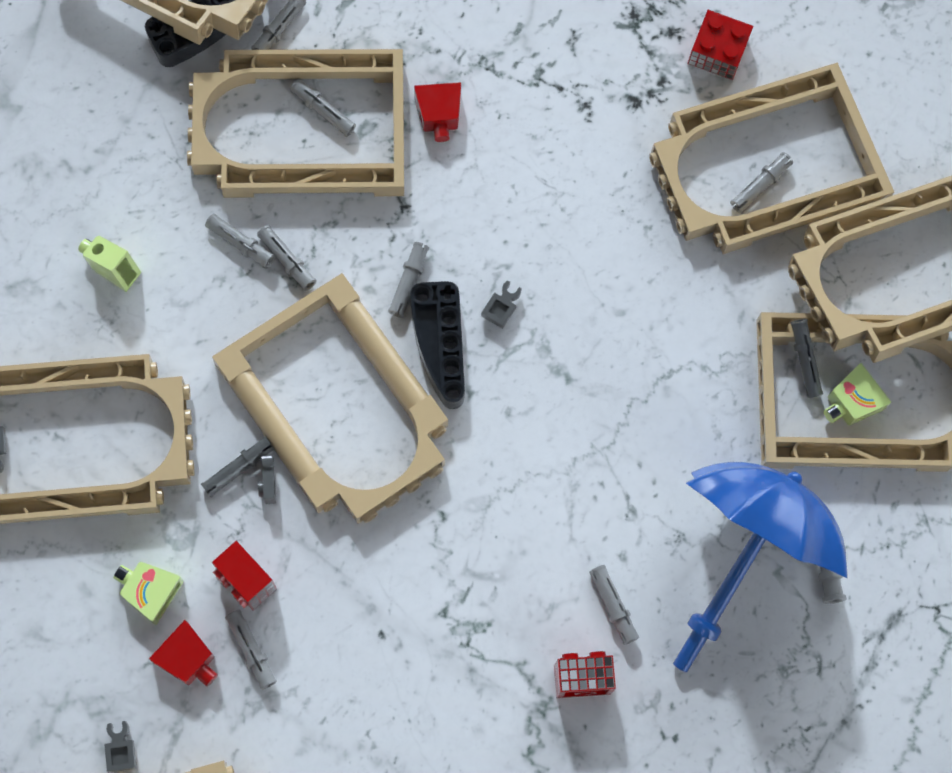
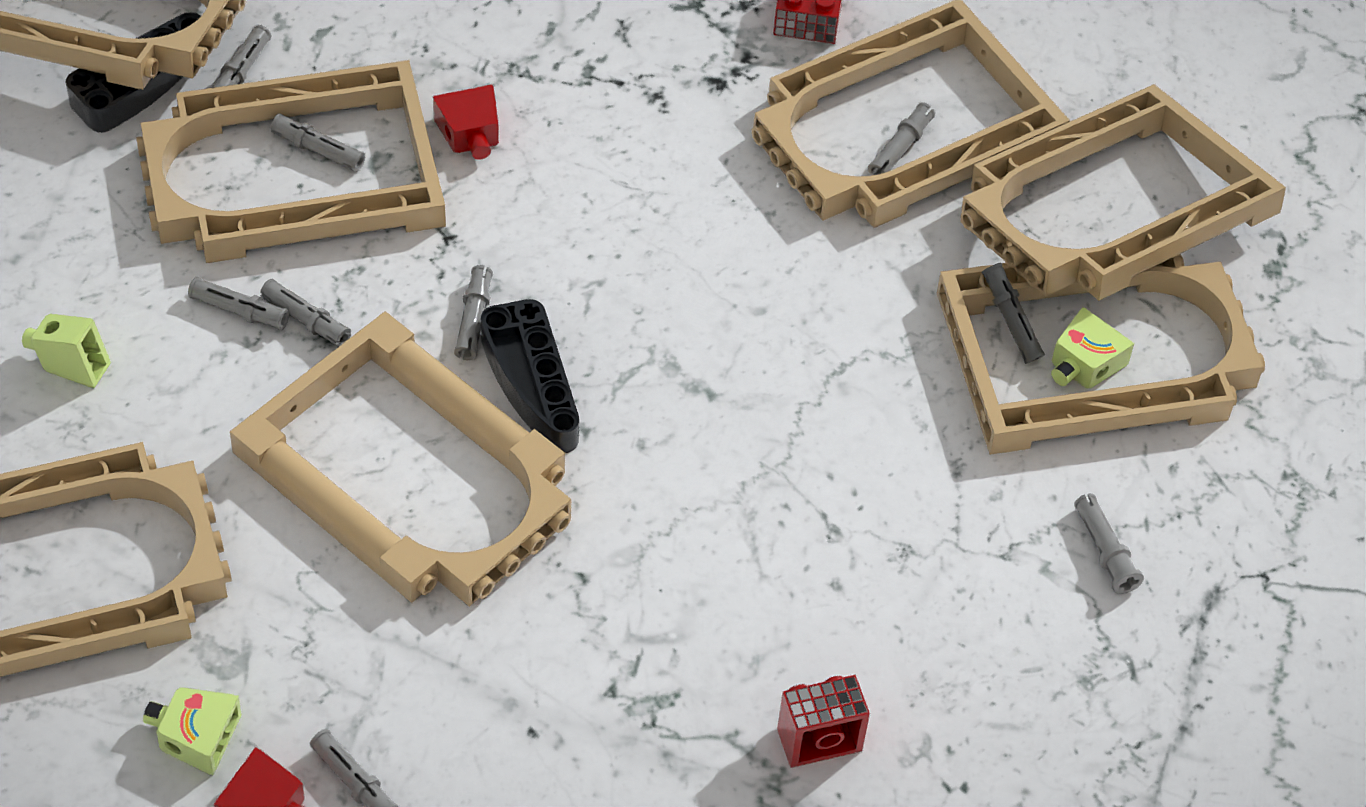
camera: 10 degrees left, 20 degrees down
(237, 466) = (301, 550): dark grey pin -> none
(244, 575) = (328, 680): red brick -> none
(267, 487) = (336, 575): dark grey plate -> none
(501, 307) = (603, 324): dark grey plate -> none
(612, 600) = (848, 647): light grey pin -> none
(776, 511) = (1023, 457): blue piece -> none

